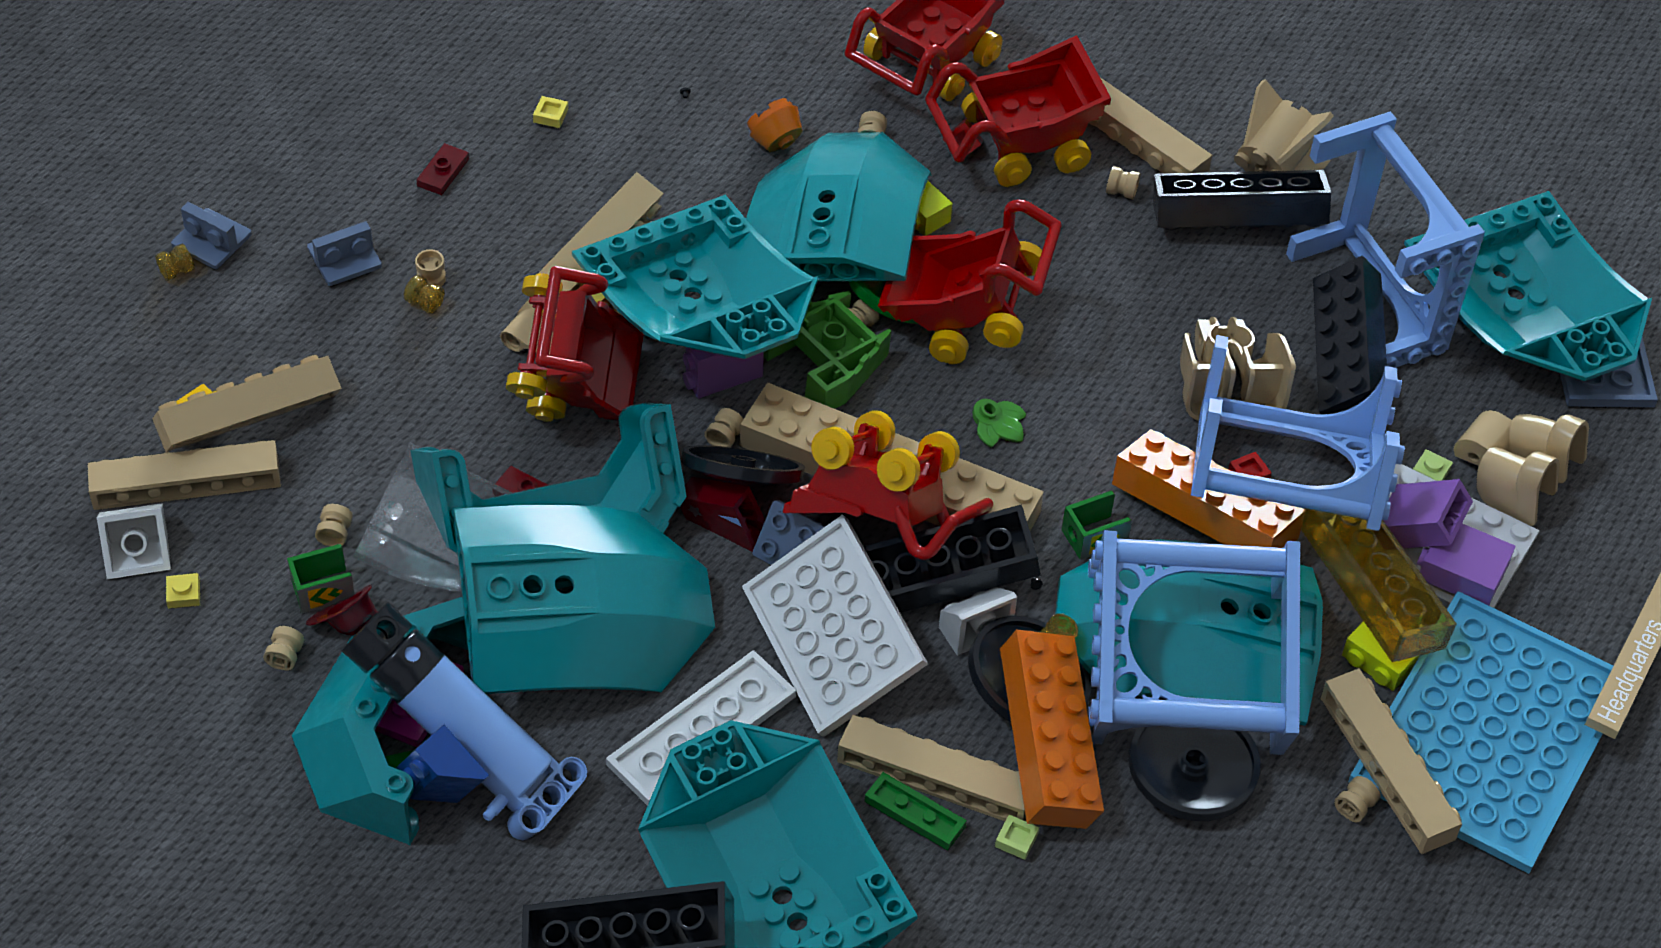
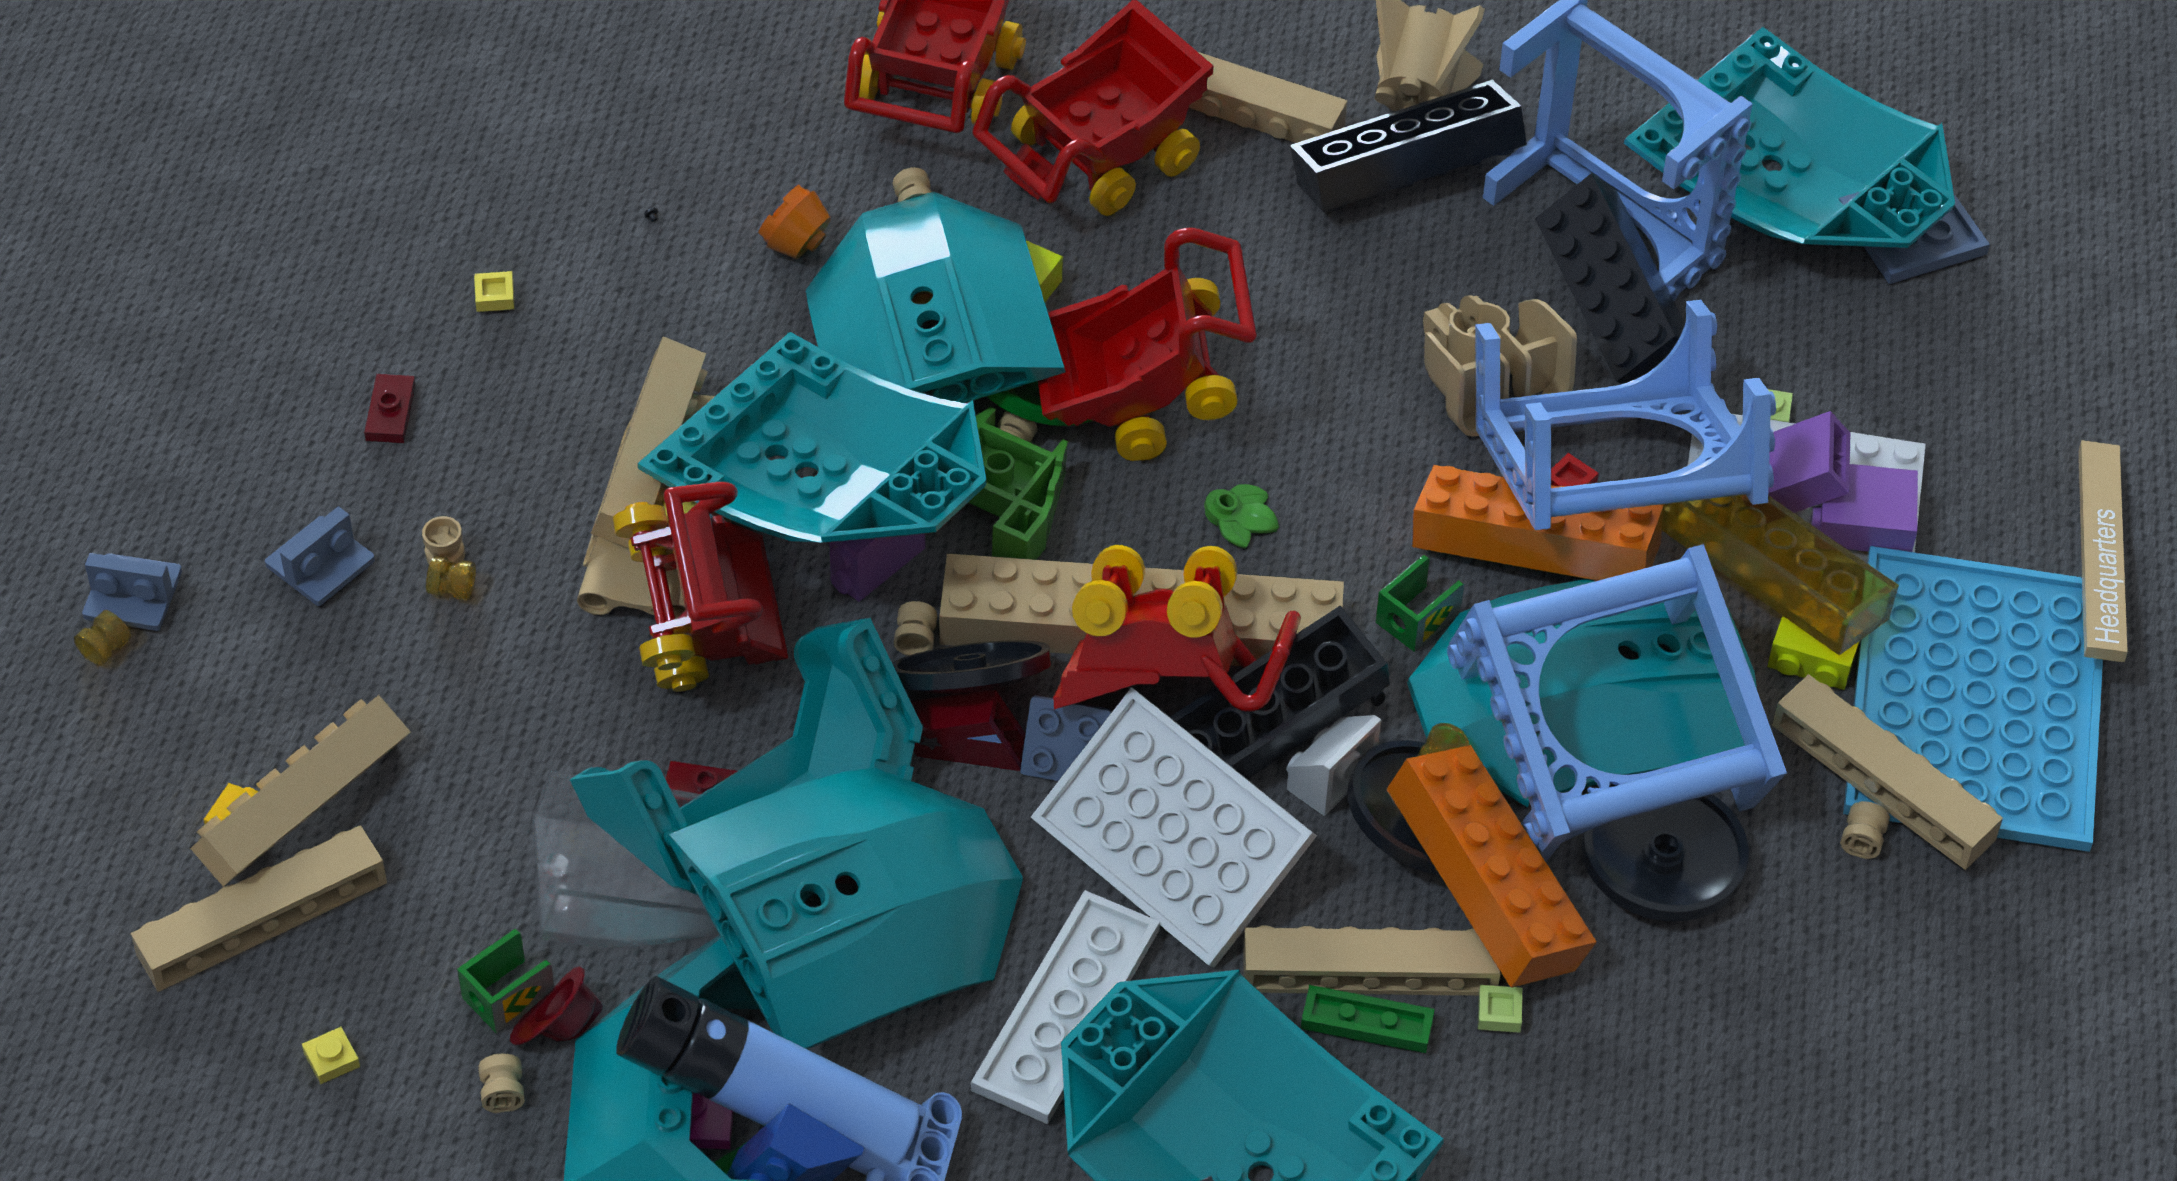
camera: 20 degrees left, 0 degrees up
(134, 541) = (238, 1012): white slope -> none
(334, 523) = (485, 907): tan wheel -> none
(1123, 182) = (1252, 167): tan wheel -> none
(1521, 458) = (1871, 364): tan piece -> none

